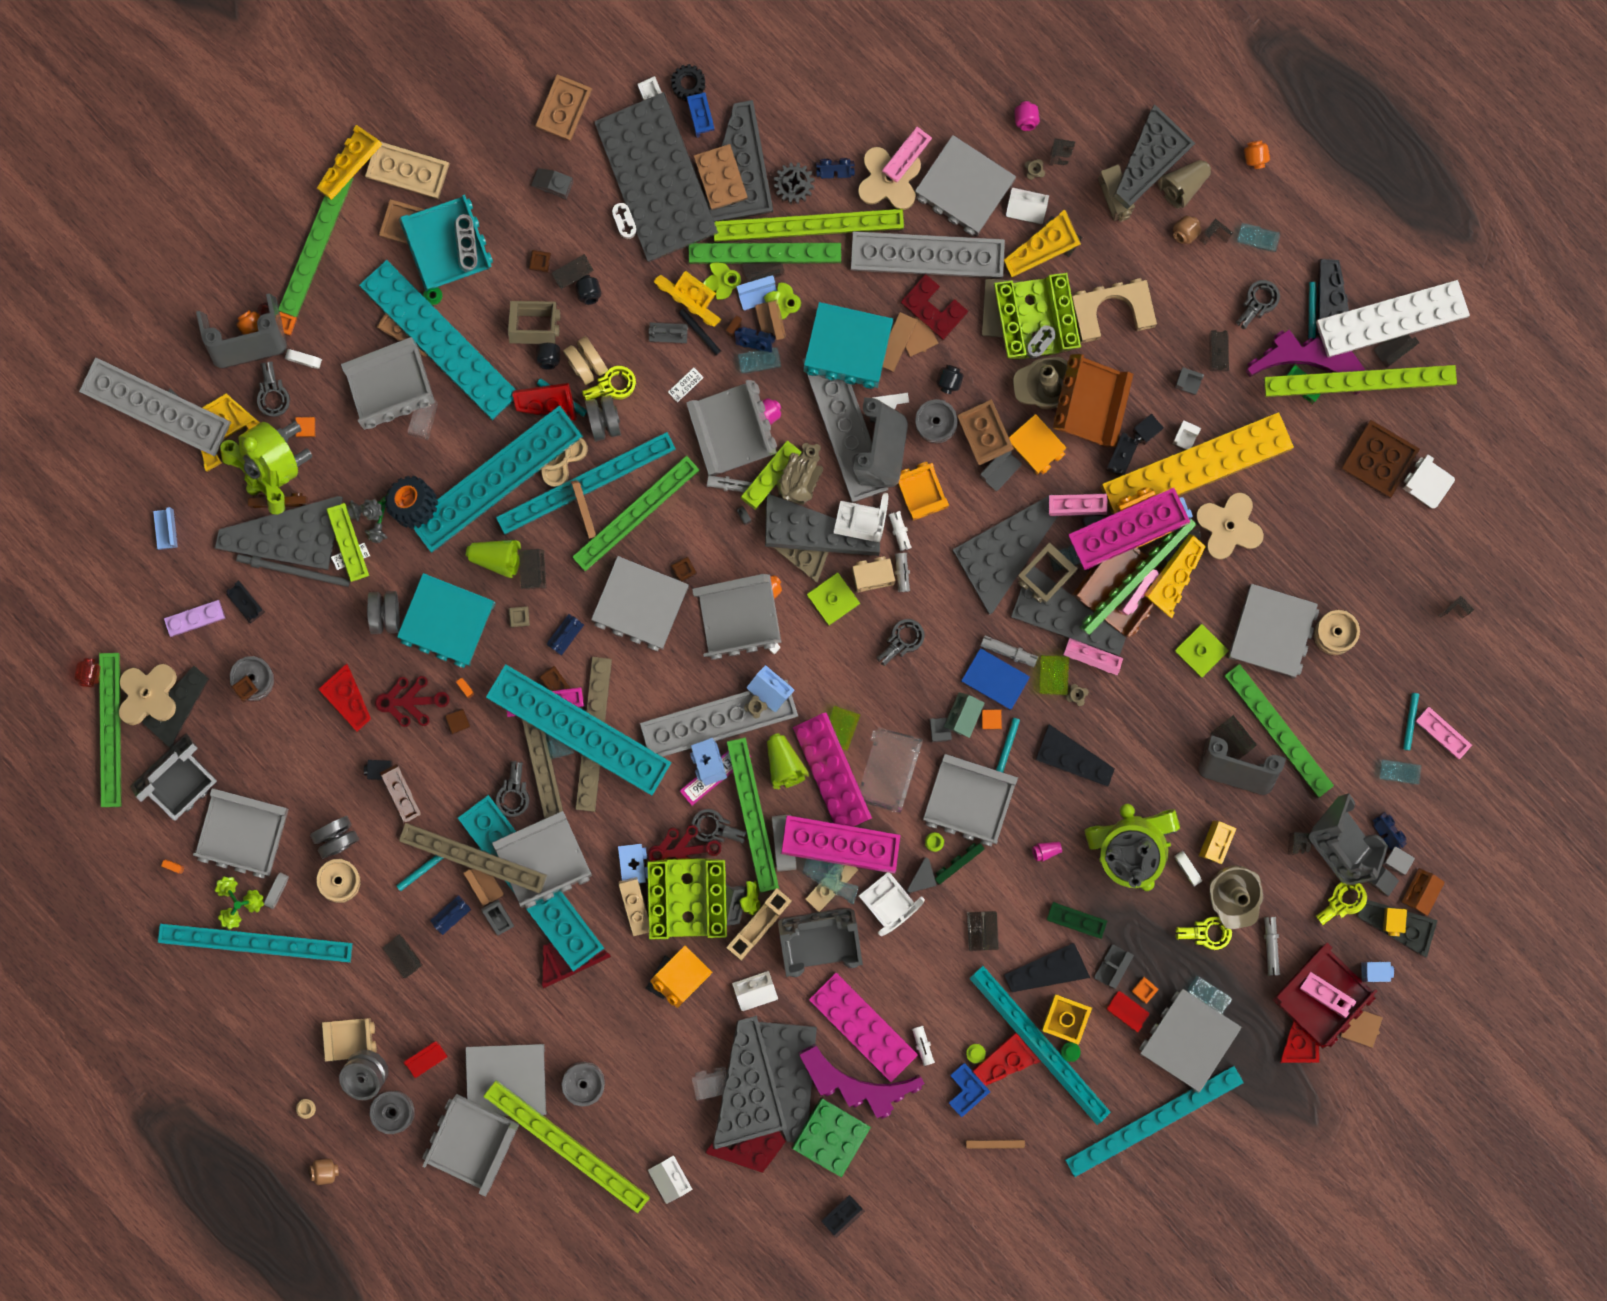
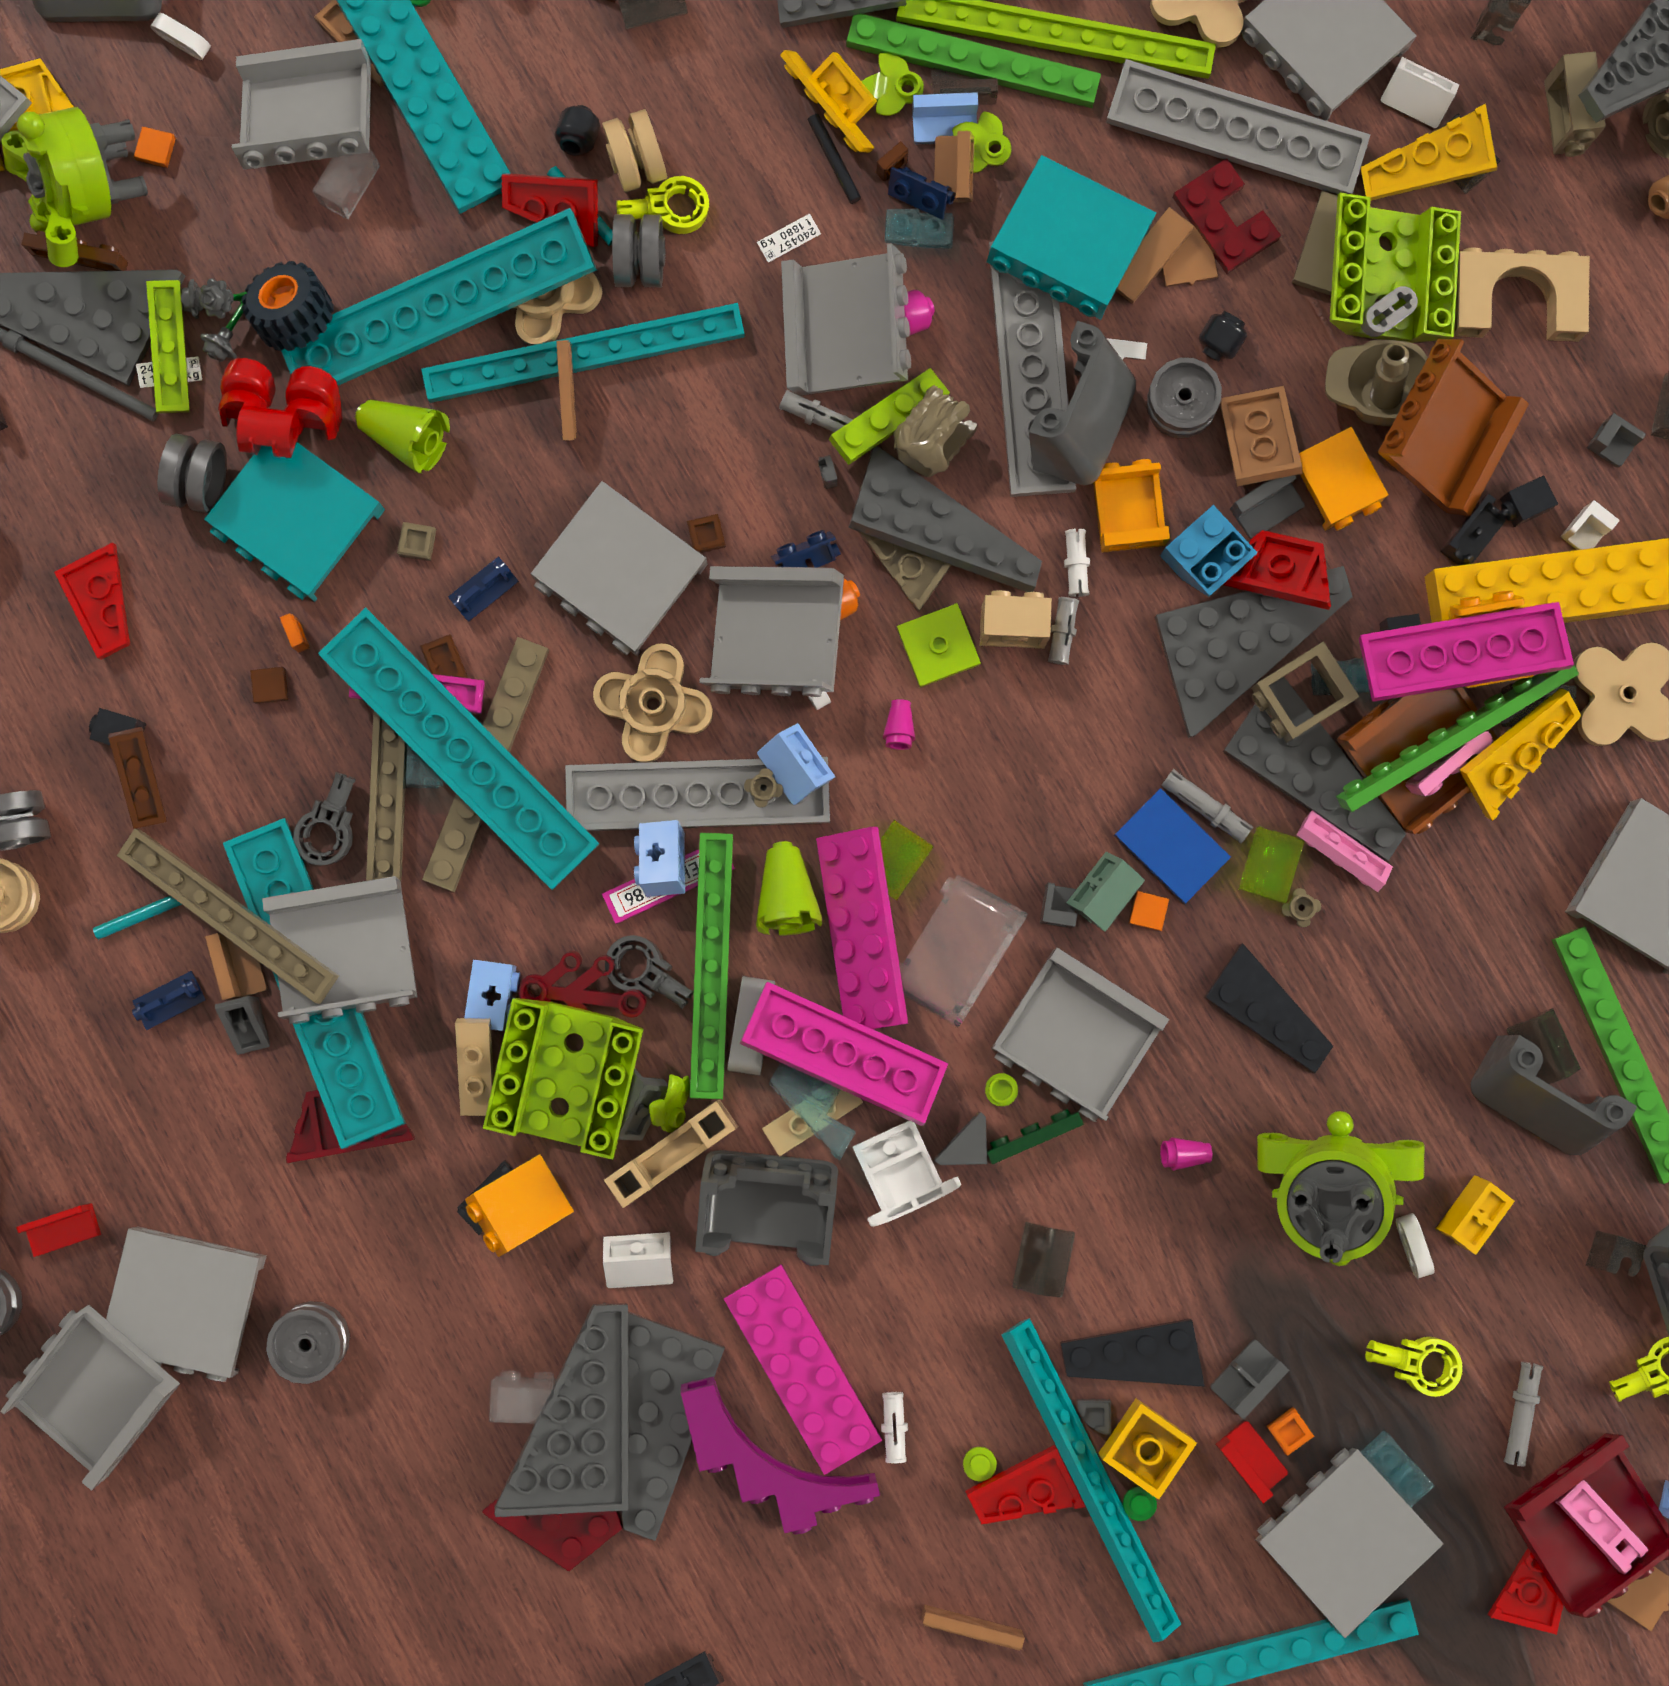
camera: 15 degrees right, 0 degrees up
(269, 378) = (106, 70): dark grey pin -> none
(402, 956) = (72, 1047): clear smoke panel -> none
(403, 558) = (249, 392): none -> red piece
(408, 701) = (198, 631): dark red plant -> none
(532, 569) = (458, 468): clear smoke hinge -> none
(533, 308) = (570, 50): dark tan window -> none
(566, 1146) = (249, 1441): lime plate -> none
(588, 290) = (670, 43): black head -> none
(636, 513) = (651, 422): bright green plate -> none
(668, 332) = (782, 146): dark grey hinge -> none
(670, 1179) = (411, 1541): white panel -> none
(679, 659) = (657, 678): none -> tan plant
(749, 560) = (816, 547): none -> dark blue hinge
(814, 448) = (972, 394): dark tan plate -> none
(823, 651) = (899, 726): none -> dark pink cone
(831, 1137) = (699, 1542): green plate -> none
(861, 520) = (1019, 527): white piece -> none
(892, 650) = (1016, 753): dark grey pin -> none
(972, 1090) = (957, 1527): blue plate -> none
(973, 506) = (1208, 552): none -> dark azure slope
(1007, 745) = (1165, 959): teal bar -> none
(1015, 505) = (1285, 570): none -> red wing
(1034, 1009) = (1096, 1414): none -> dark grey tile
(1038, 164) = (1453, 30): dark tan plate -> none
(1077, 920) = (1206, 1284): dark green plate -> none
(1078, 504) = (1385, 593): bright pink plate -> none
(1201, 650) = (1526, 888): lime plate -> none
(1236, 896) = (1487, 1316): dark tan piece -> none

